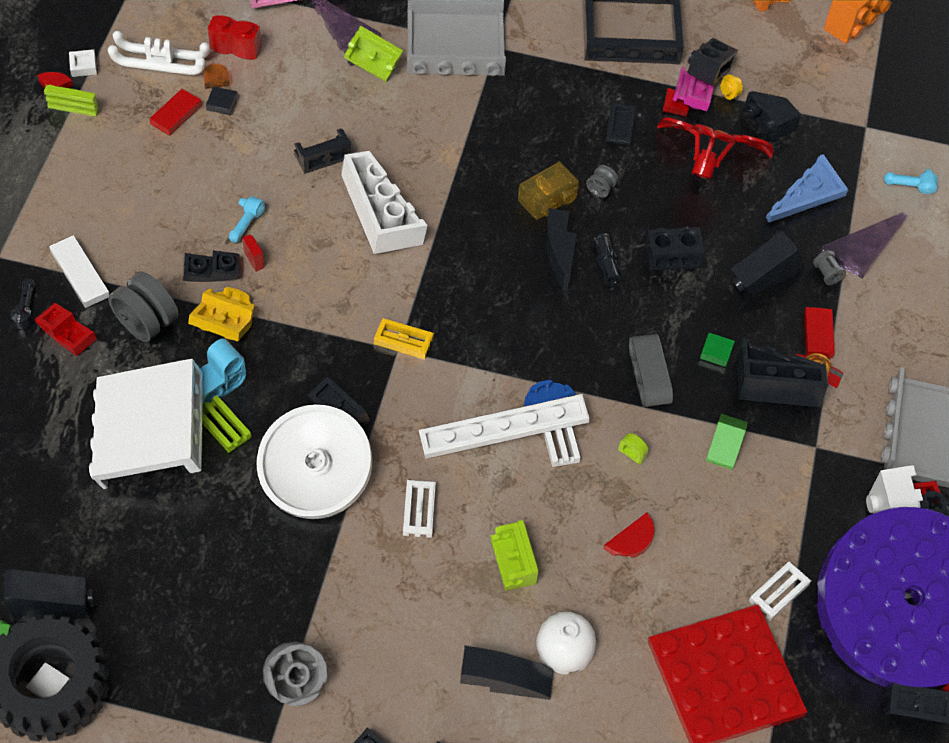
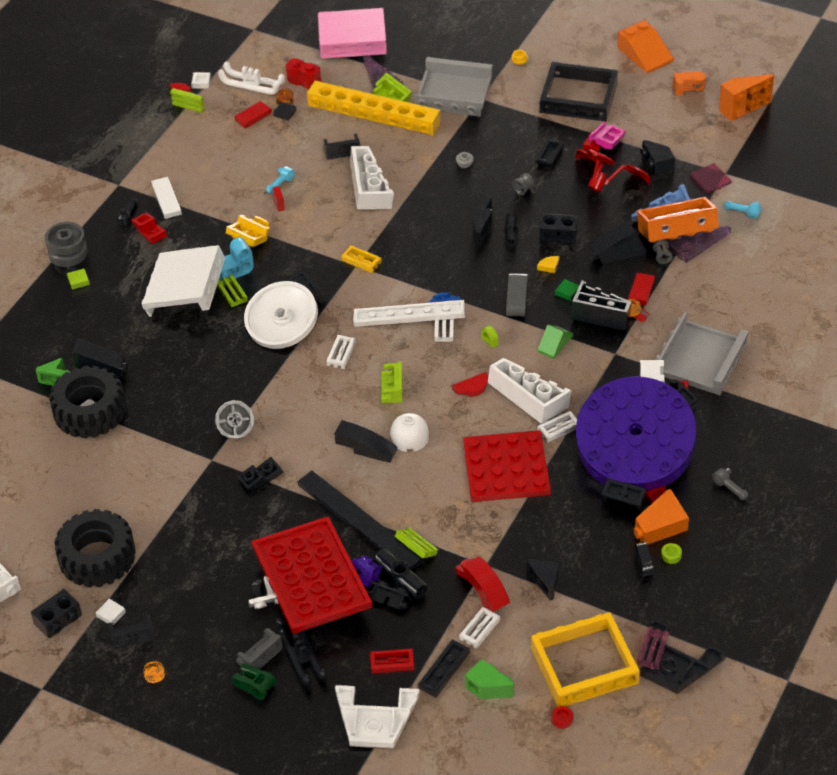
camera: 20 degrees right, 10 degrees down
(143, 306) = (198, 217): dark grey wheel -> none
(213, 268) = (253, 205): black slope -> none
(351, 81) = (374, 107): none -> yellow brick
(505, 150) = (464, 159): none -> light grey plate
(548, 190) = (486, 183): clear yellow brick -> none
(677, 309) = (548, 264): none -> yellow tile
(711, 61) = (625, 119): black brick -> none
(721, 539) = (528, 391): none -> white wedge
(731, 86) = (635, 137): yellow plate -> none
(840, 215) = (677, 219): none -> orange piece
(850, 137) = (710, 178): none -> clear pink piece

